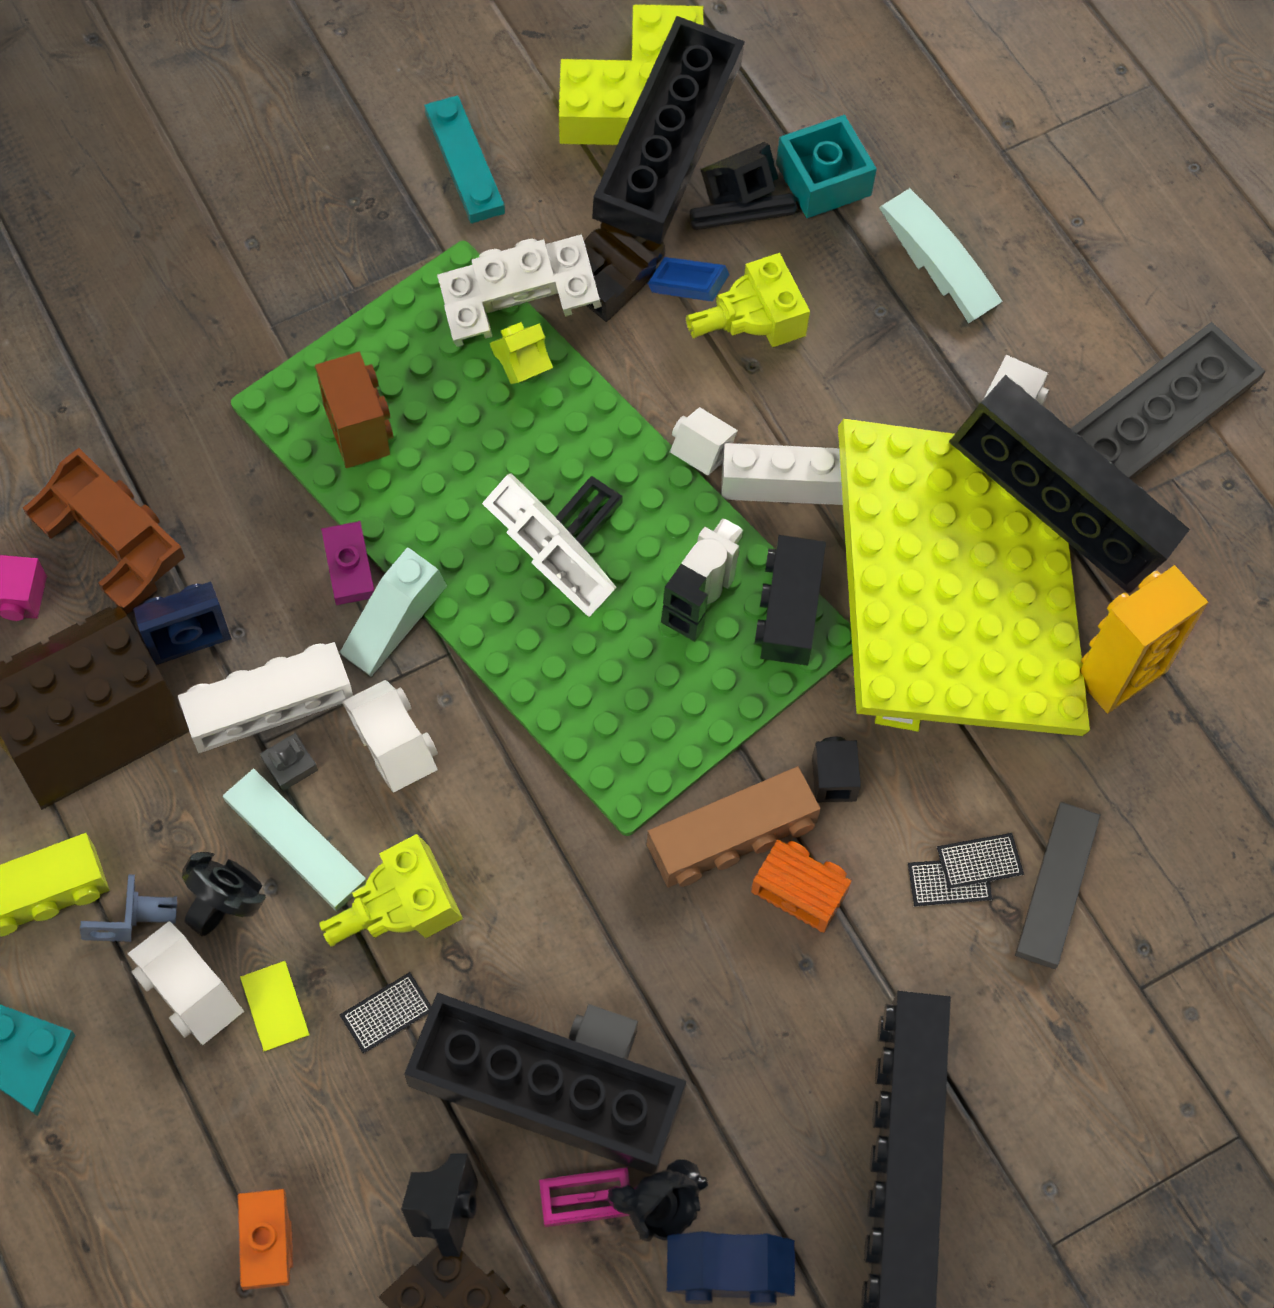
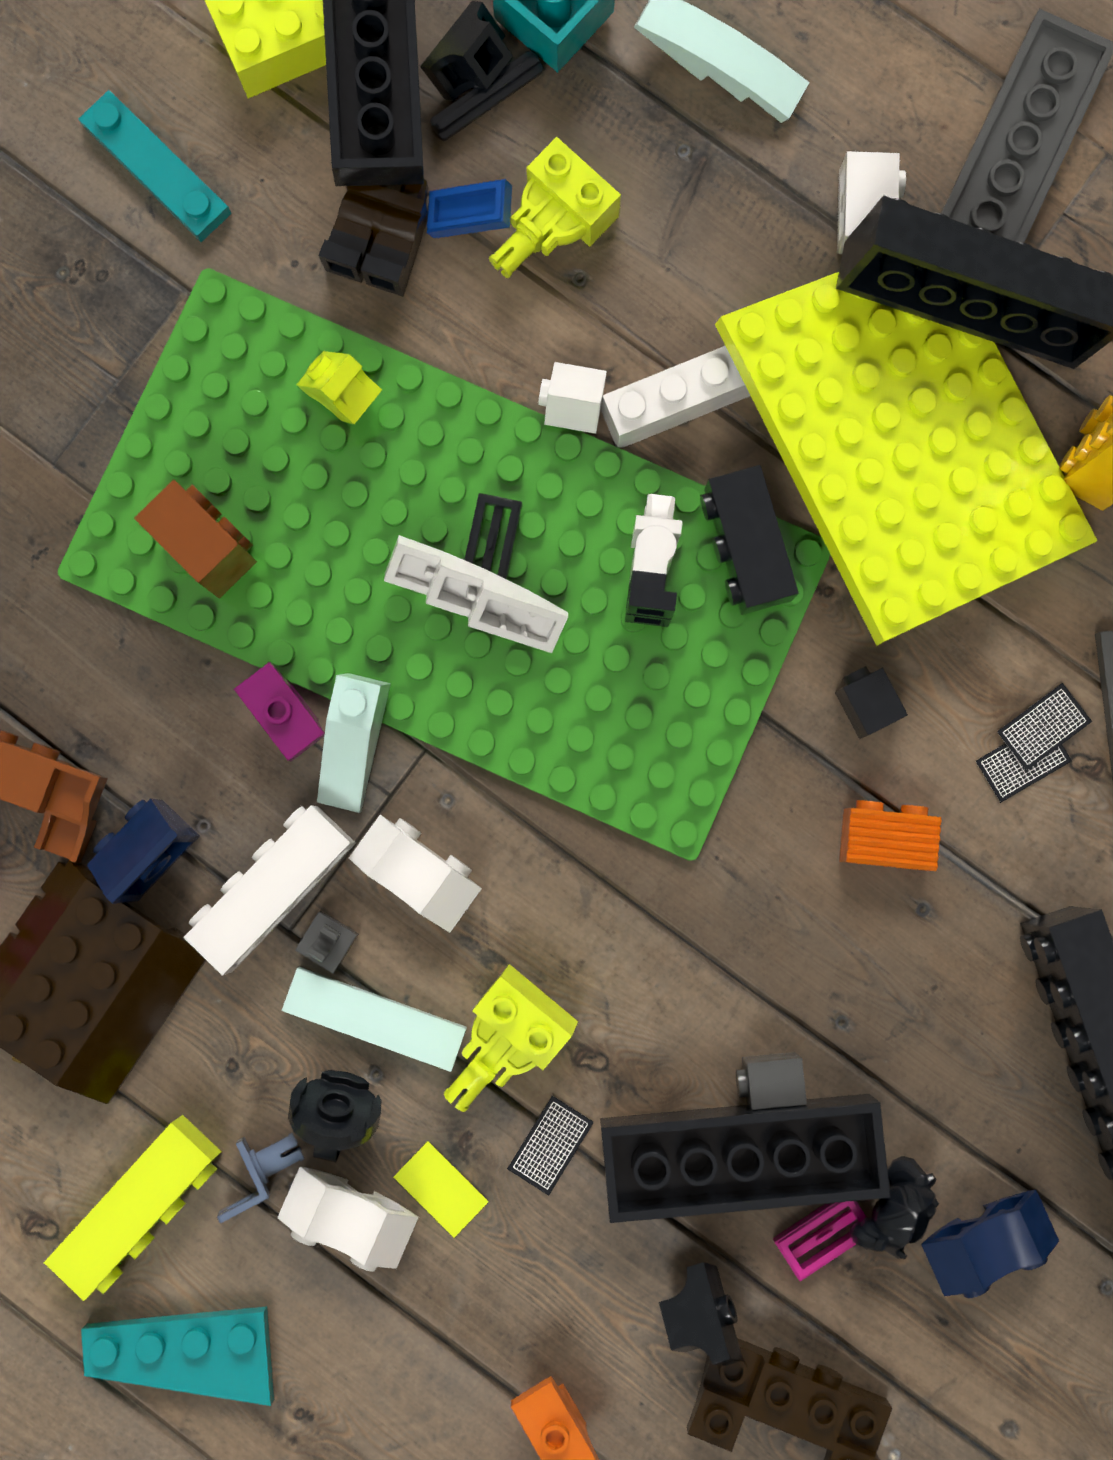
camera: 20 degrees left, 20 degrees up
(516, 277) = (287, 298): white bracket -> none
(733, 828) = (798, 809): medium nougat brick -> none

